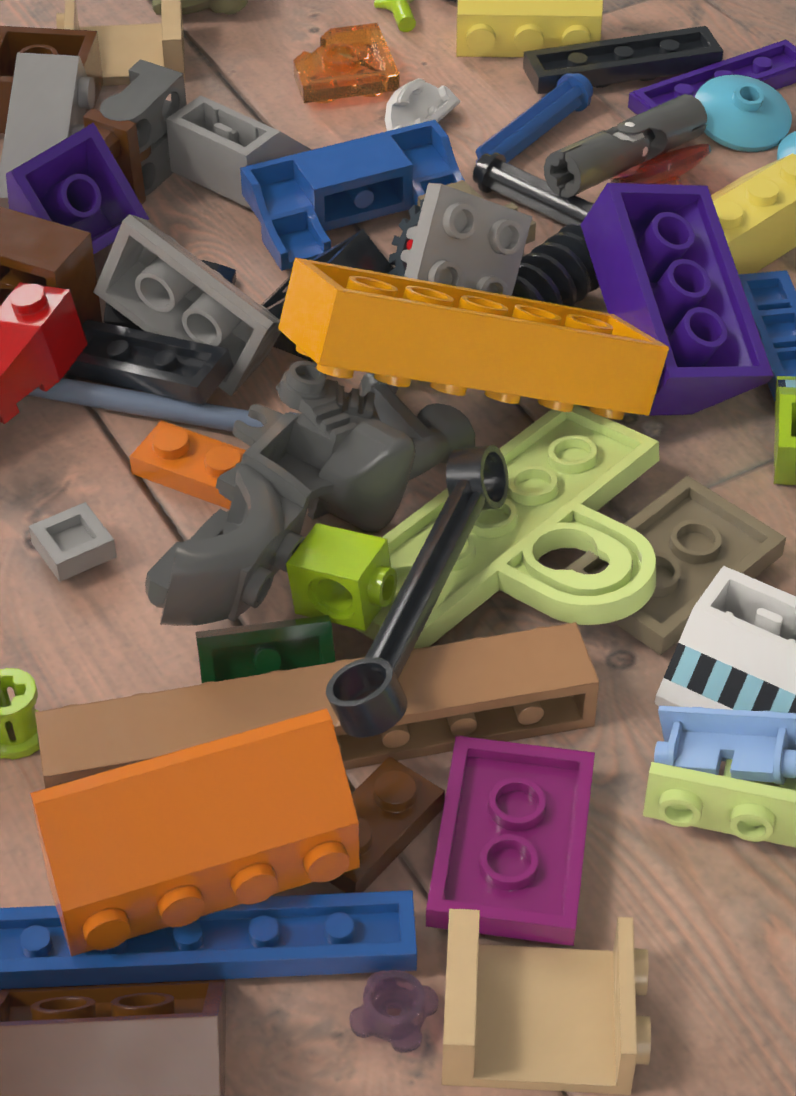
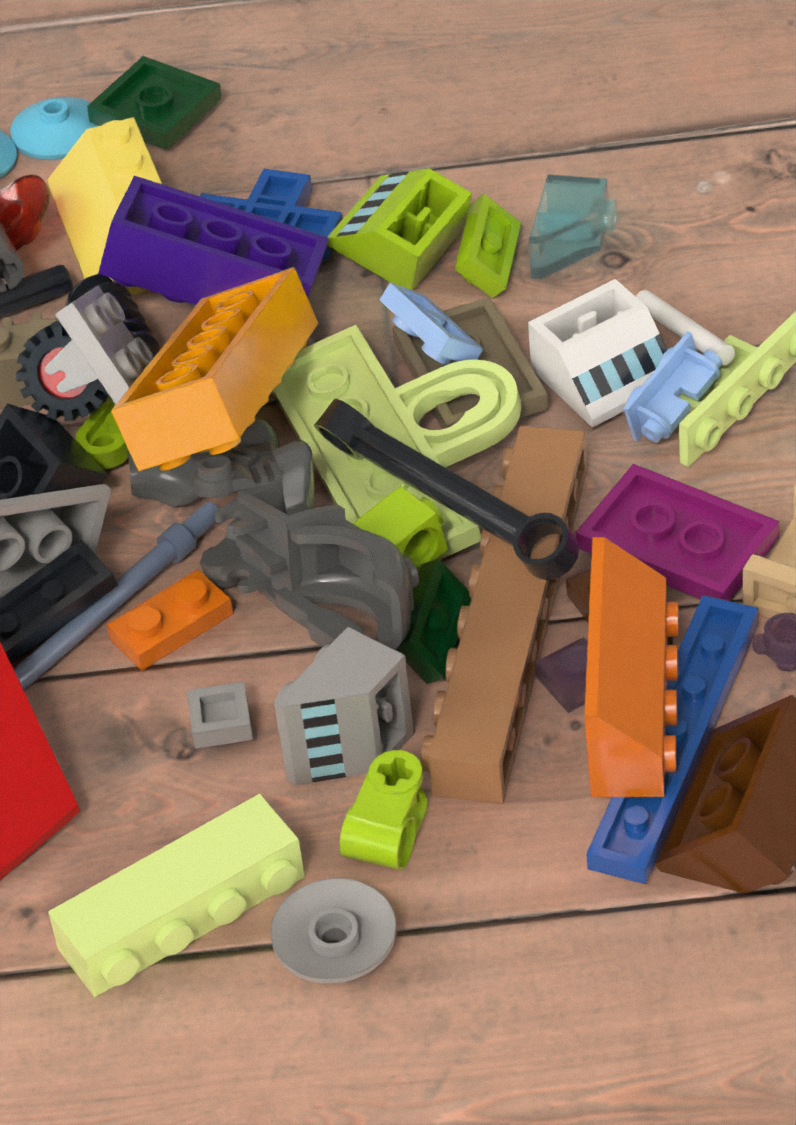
camera: 60 degrees left, 0 degrees up
(80, 618) = (344, 710): none -> light grey slope
(683, 495) = (423, 319): none -> light blue plate

